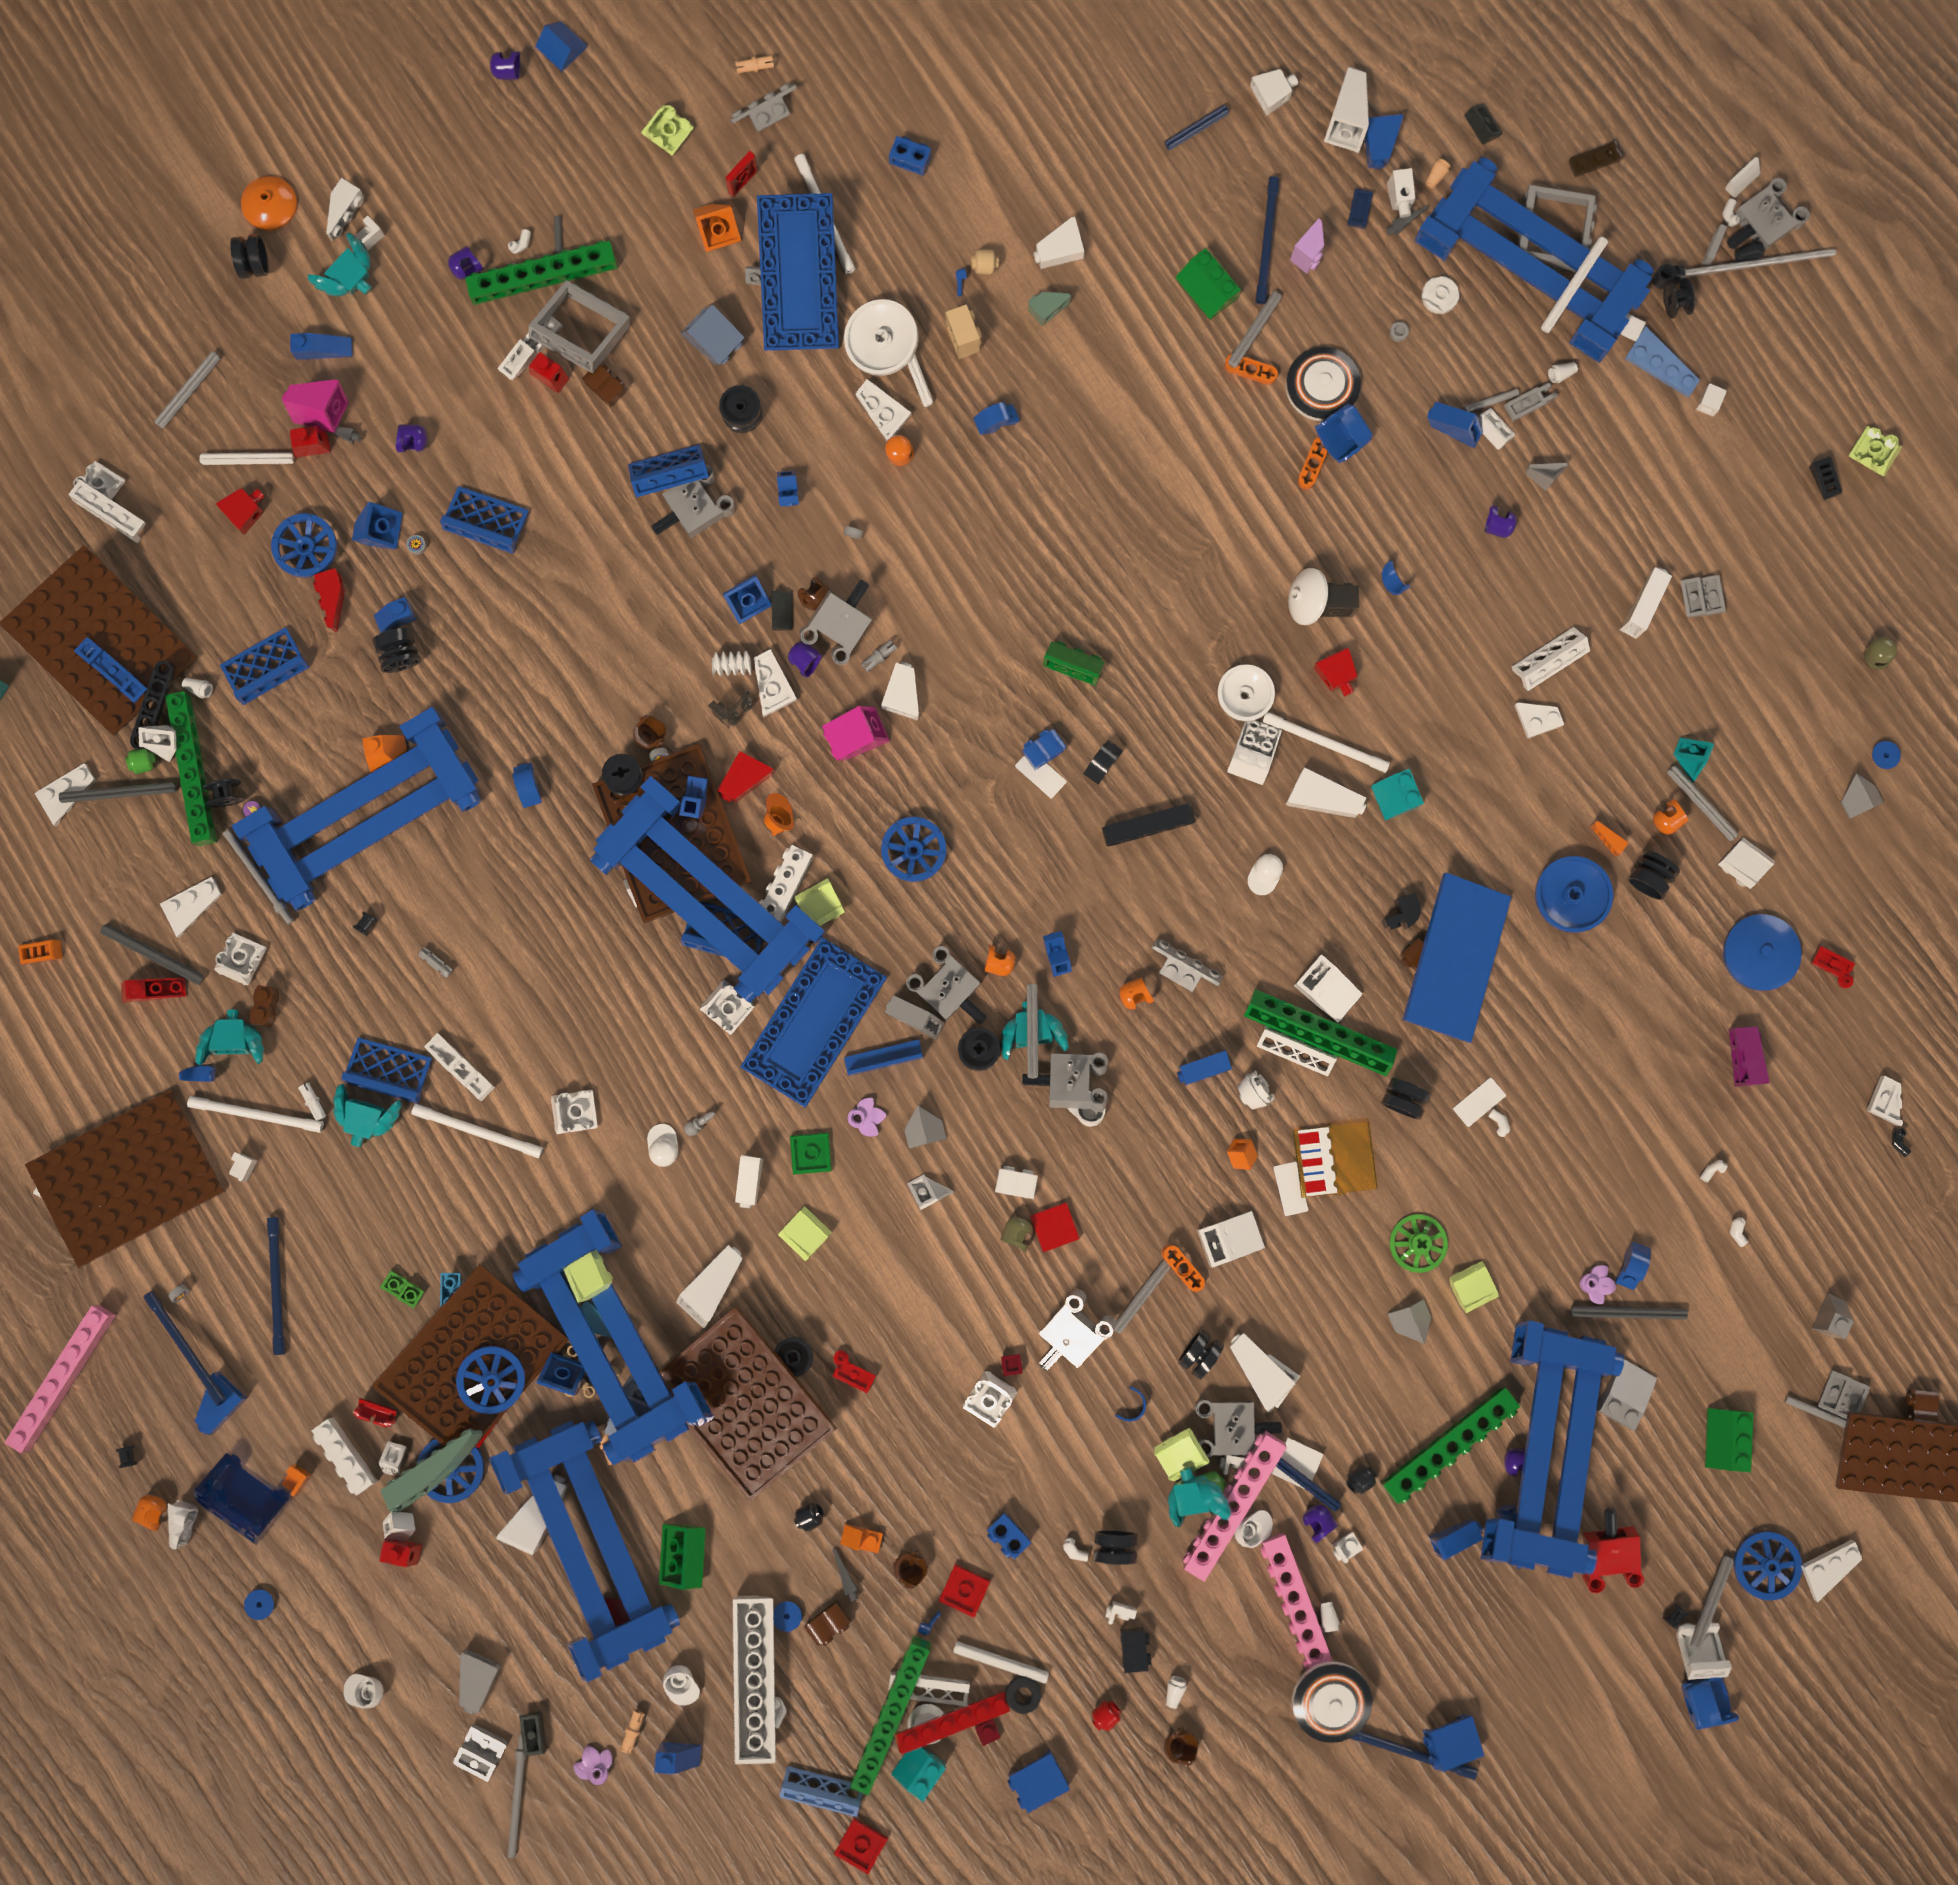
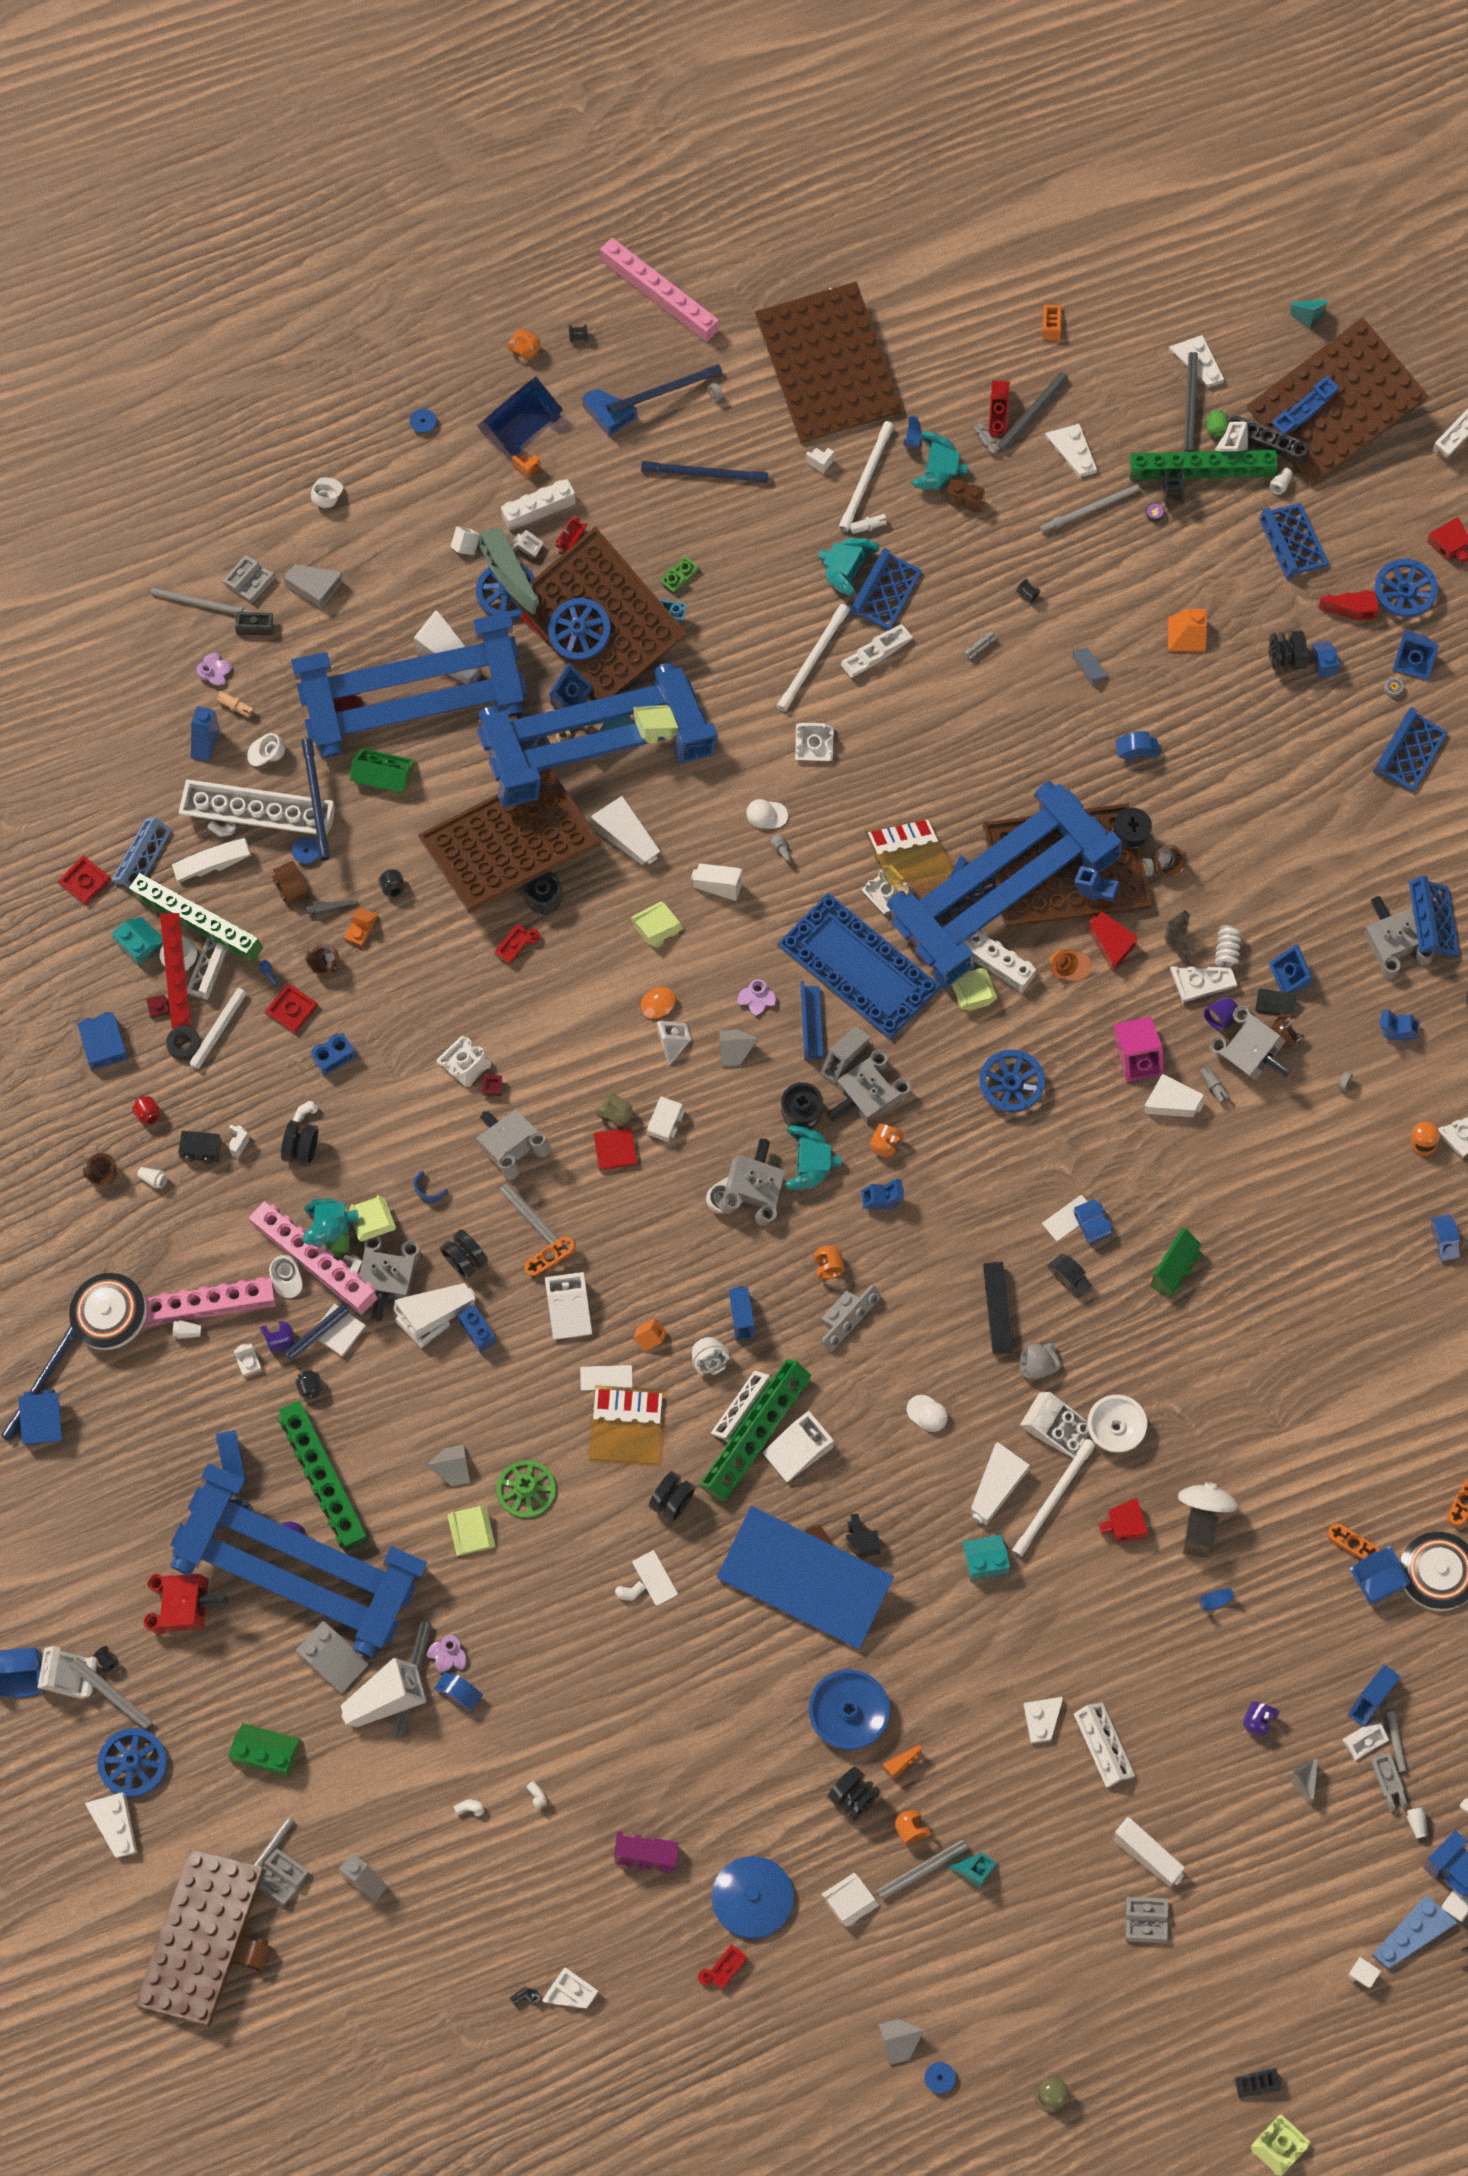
camera: 105 degrees right, 15 degrees down
(180, 1518) = (508, 365): white slope -> none
(192, 996) = (986, 438): none -> light grey axle
(239, 959) = (1014, 482): white slope -> none
(273, 845) = (1117, 522): blue fence -> none
(399, 1552) = (441, 533): red torso -> none
(440, 848) = (1089, 665): none -> sand blue slope
(684, 993) = (908, 851): none -> clear yellow piece
(785, 1599) = (308, 753): none -> dark blue piece
(810, 1153) = (732, 942): green tile -> none
(816, 1714) = (211, 859): none -> white slope
(891, 1215) = (658, 1002): none -> orange hat
(1032, 1031) = (809, 1153): light grey axle -> none
(1196, 776) = (1039, 1361): none -> light grey piece
(1271, 1324) = (477, 1329): none -> blue brick
(1656, 1329) = (385, 1694): none -> white slope

